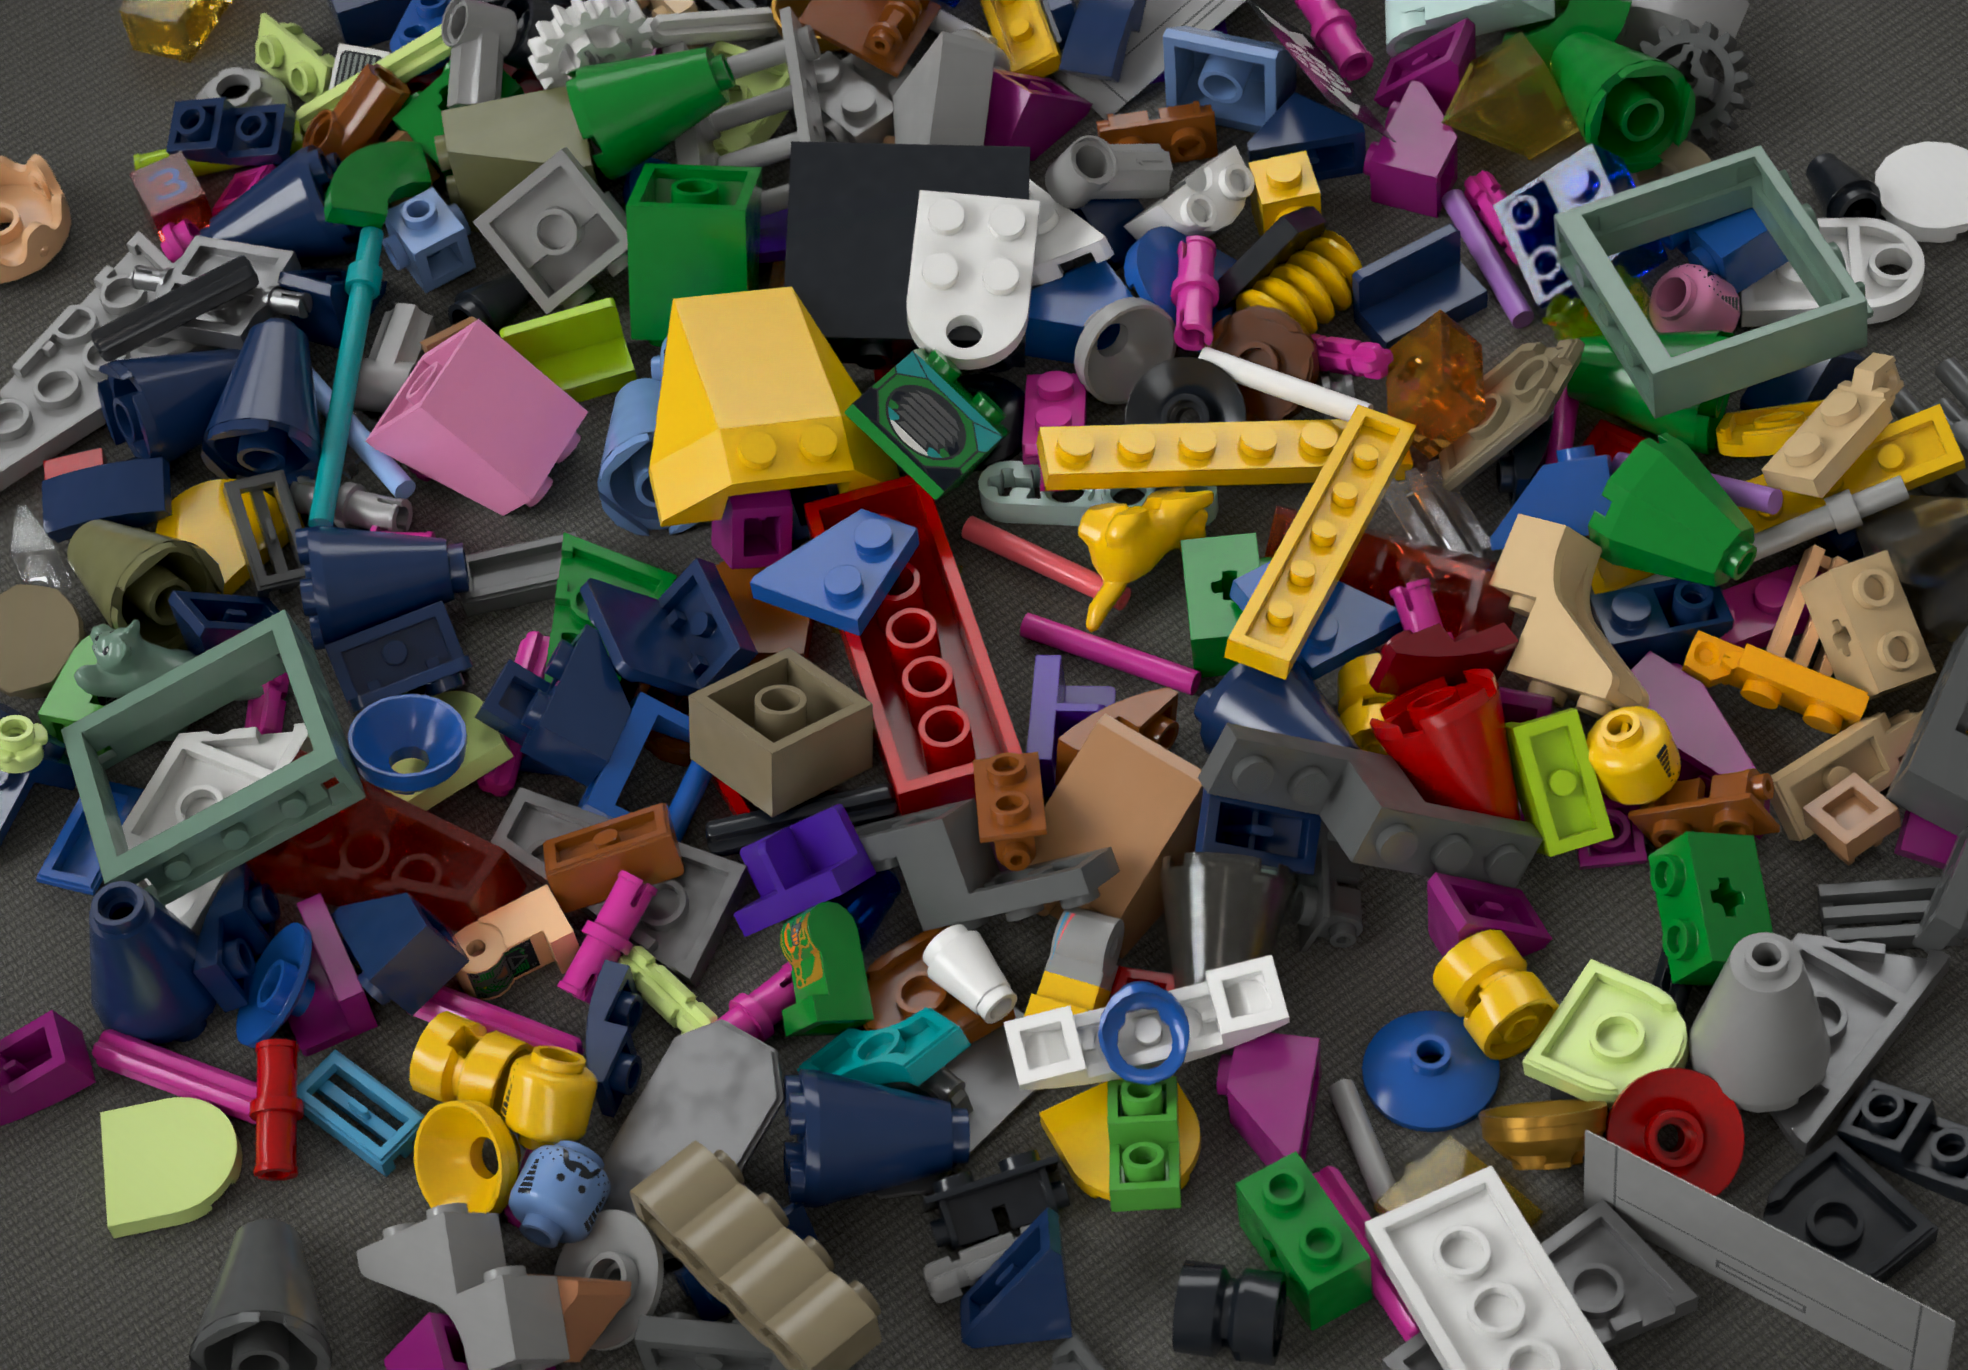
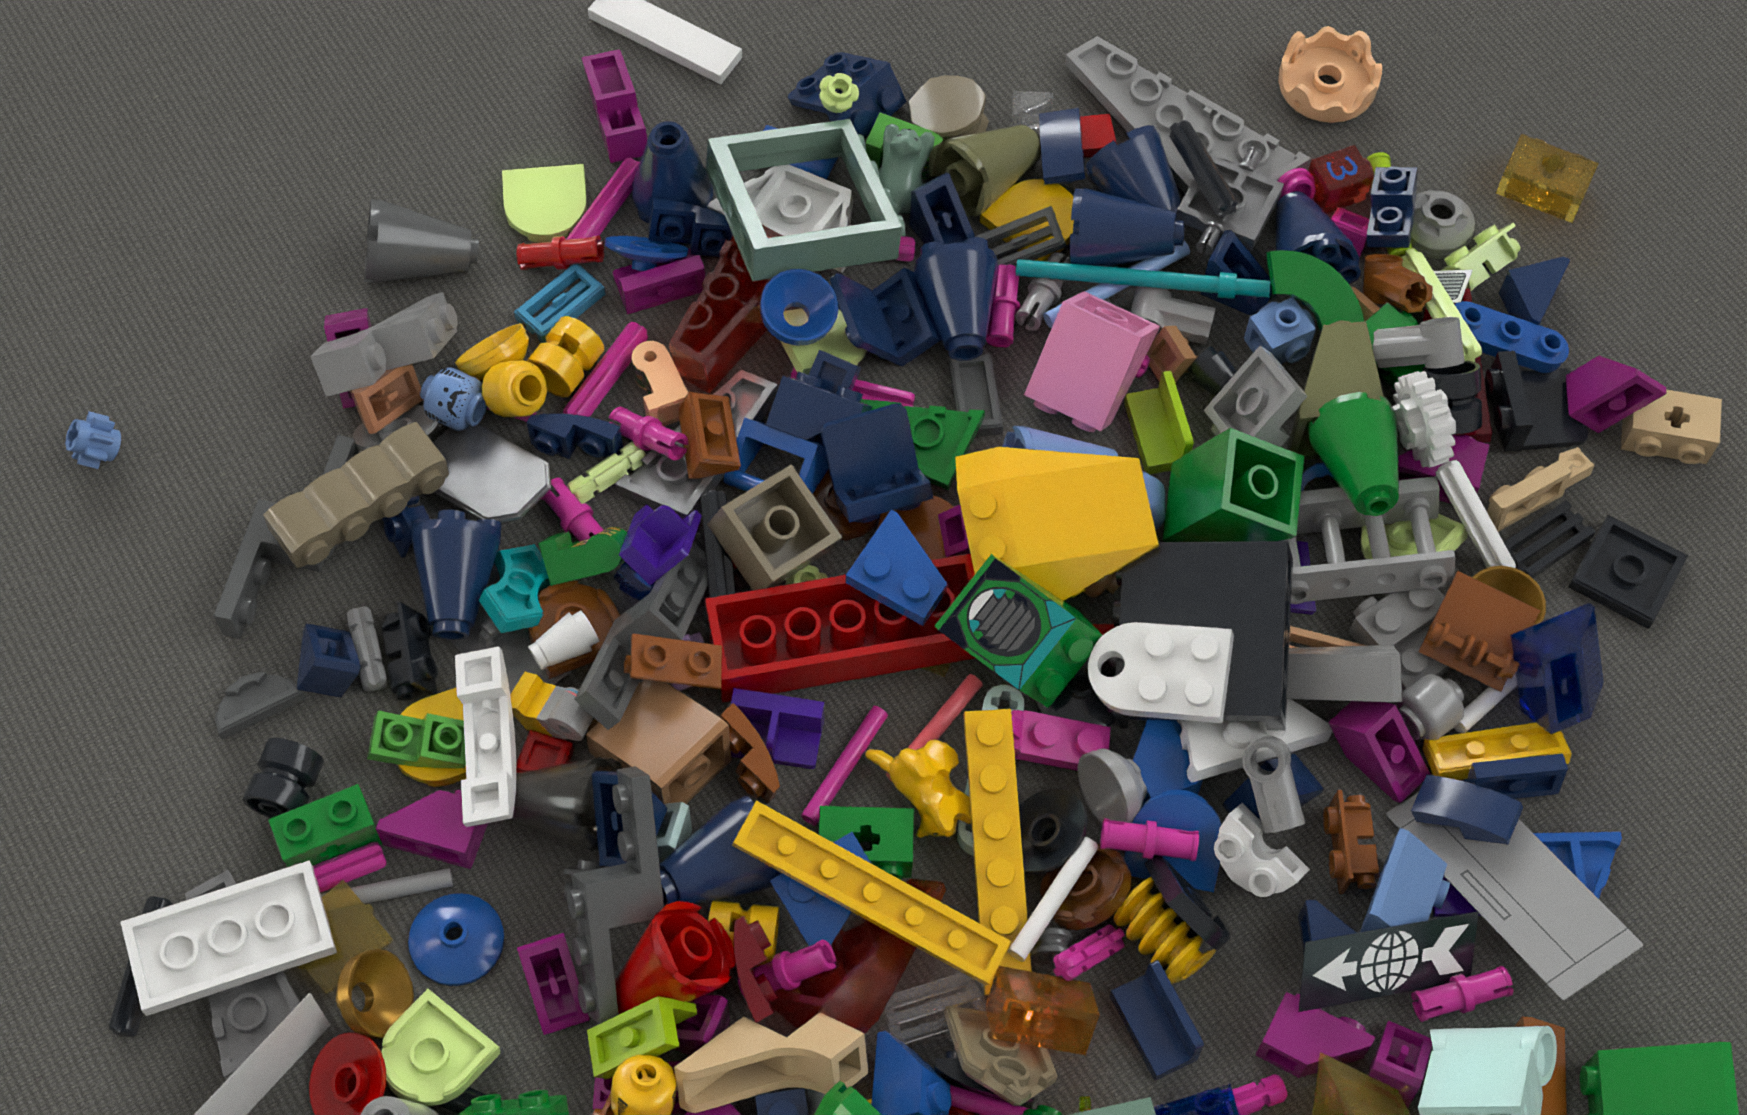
camera: 85 degrees right, 10 degrees up
(399, 949) = (650, 310): dark blue slope -> none
(1171, 1012) = (498, 734): blue piece -> none
(1282, 187) = (1263, 928): yellow brick -> none
(1487, 258) = (1193, 1085): medium lavender bar -> none
(1494, 993) = (487, 980): yellow wheel -> none

